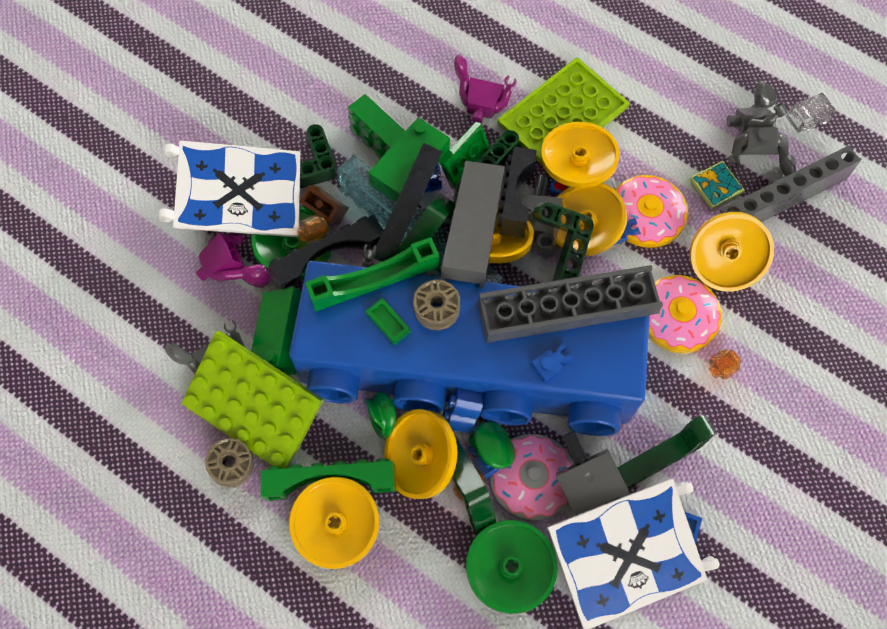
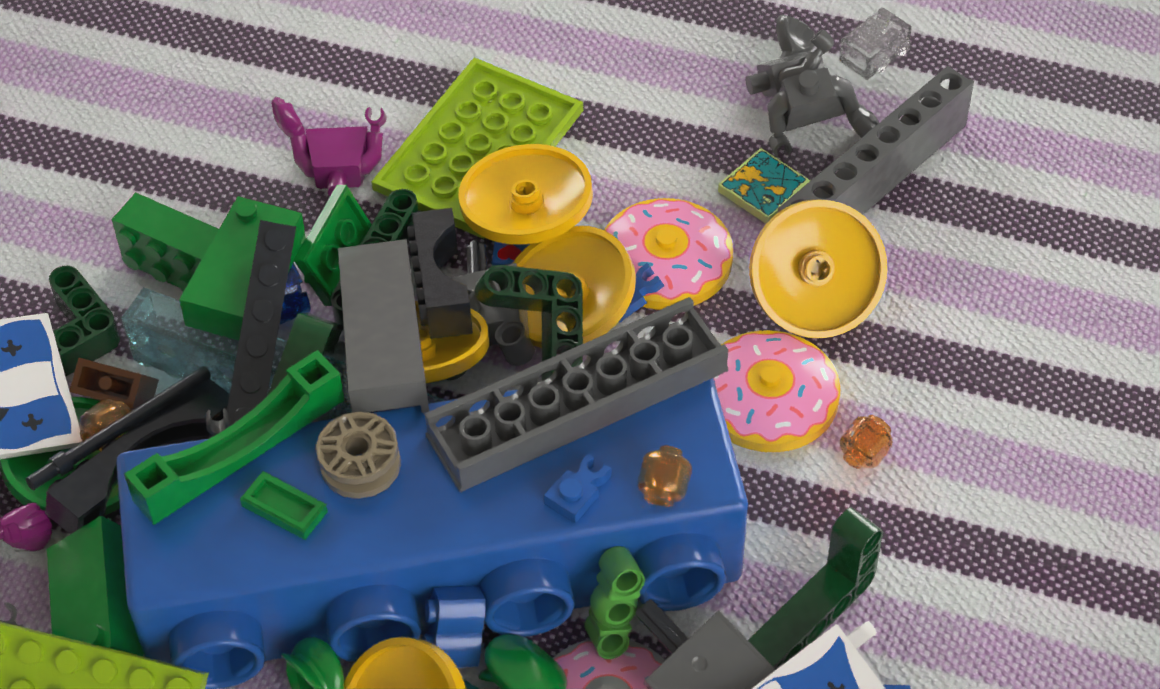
camera: 15 degrees left, 15 degrees down
(281, 248) = (63, 462): none -> black bar
(553, 424) = (614, 602): none -> bright green piece
(602, 371) = (664, 476): none -> clear orange head

